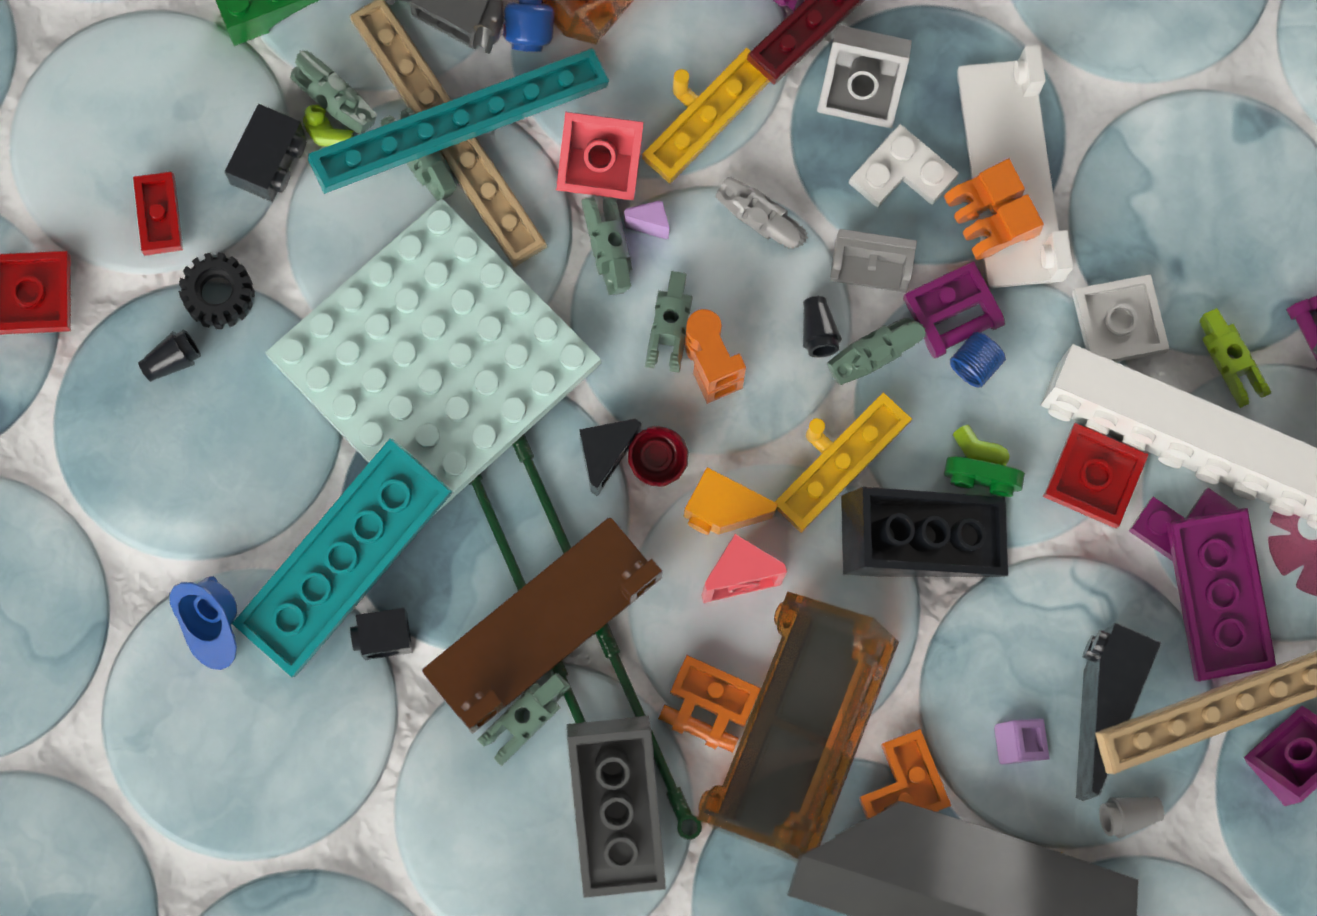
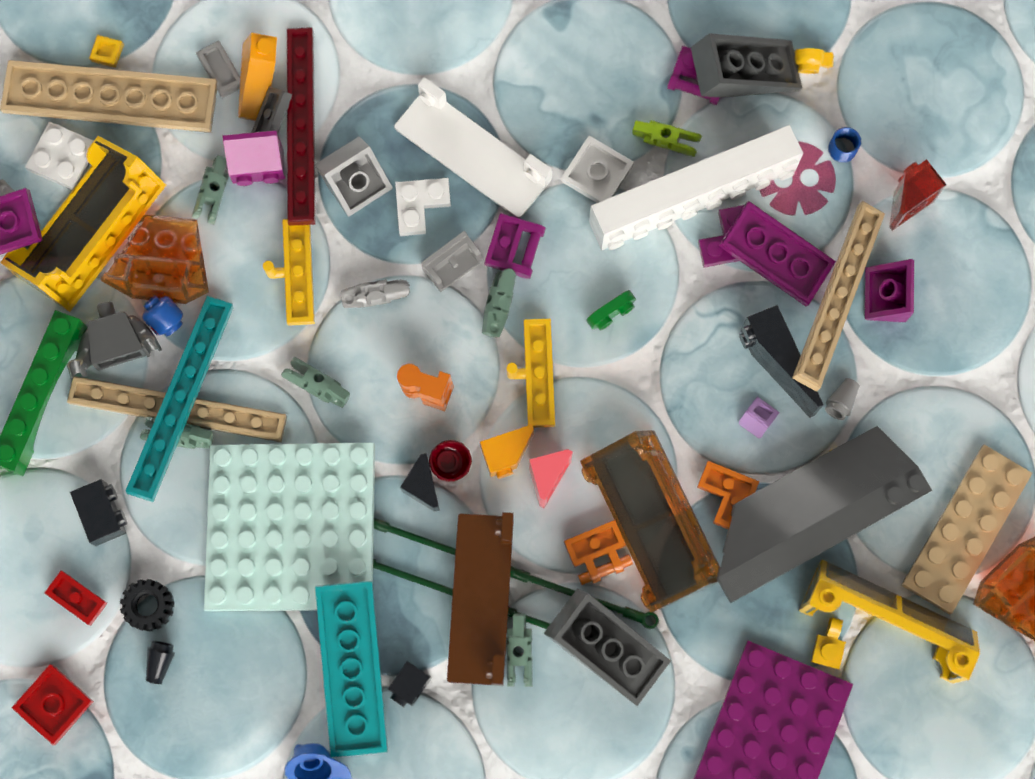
camera: 40 degrees left, 0 degrees up
(321, 129) = (115, 473): lime arm -> none
(332, 92) = (99, 449): sand green hinge -> none
(600, 156) = (268, 345): coral slope -> none
(648, 219) = (323, 351): lavender slope -> none
(672, 306) = (381, 379): sand green hinge -> none
(819, 328) = (461, 320): black cone -> none
(923, 534) = (612, 368): black slope -> none
(977, 359) = (551, 258): blue piece -> none
(980, 450) = (597, 300): lime arm -> none
(1012, 216) = (477, 168): orange legs -> none
(1095, 475) = (662, 257): red plate -> none

